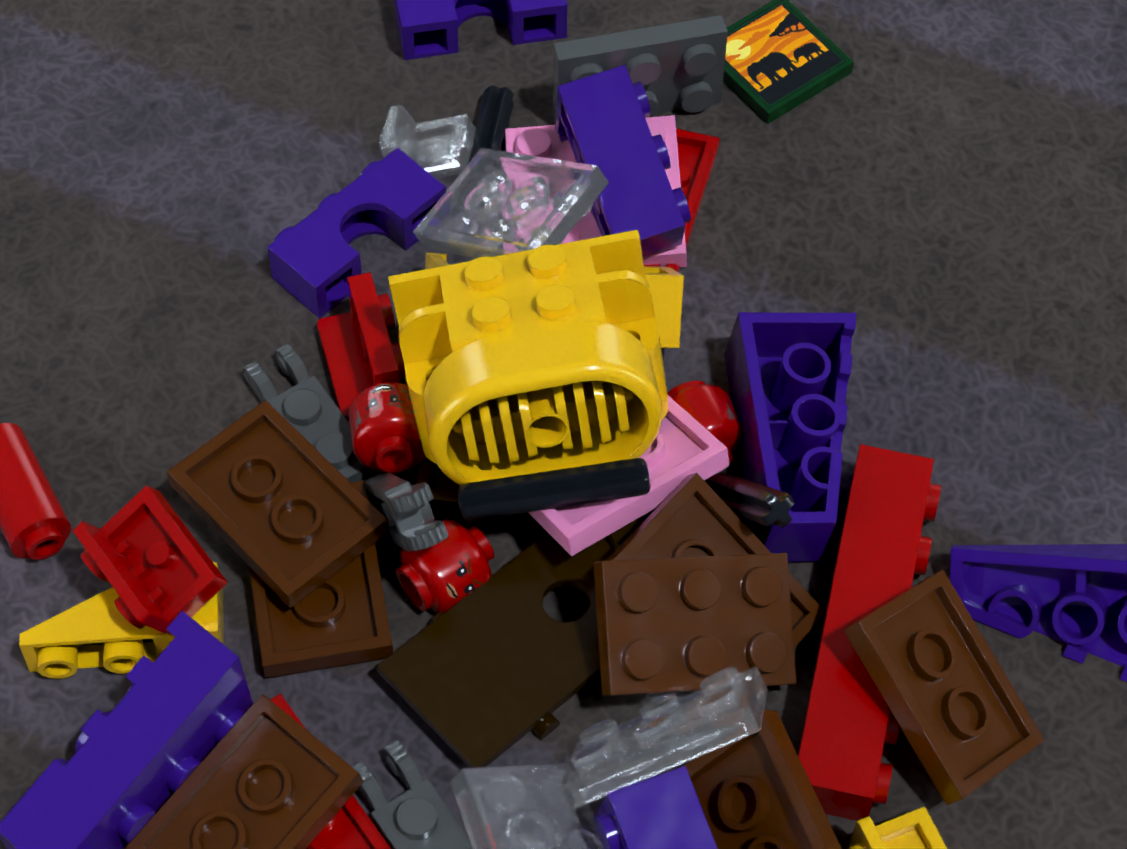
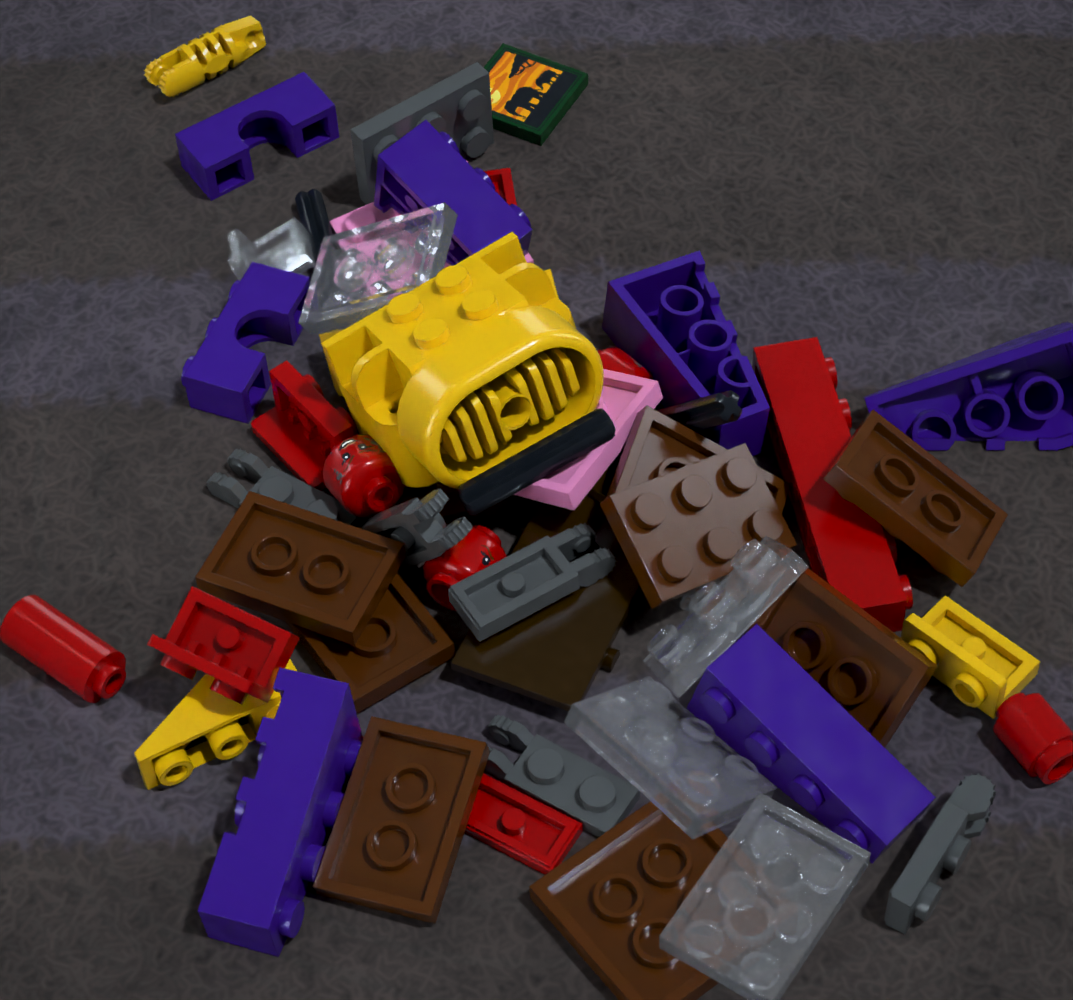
camera: 20 degrees left, 5 degrees down
(495, 612) = (529, 580): none -> dark grey hinge

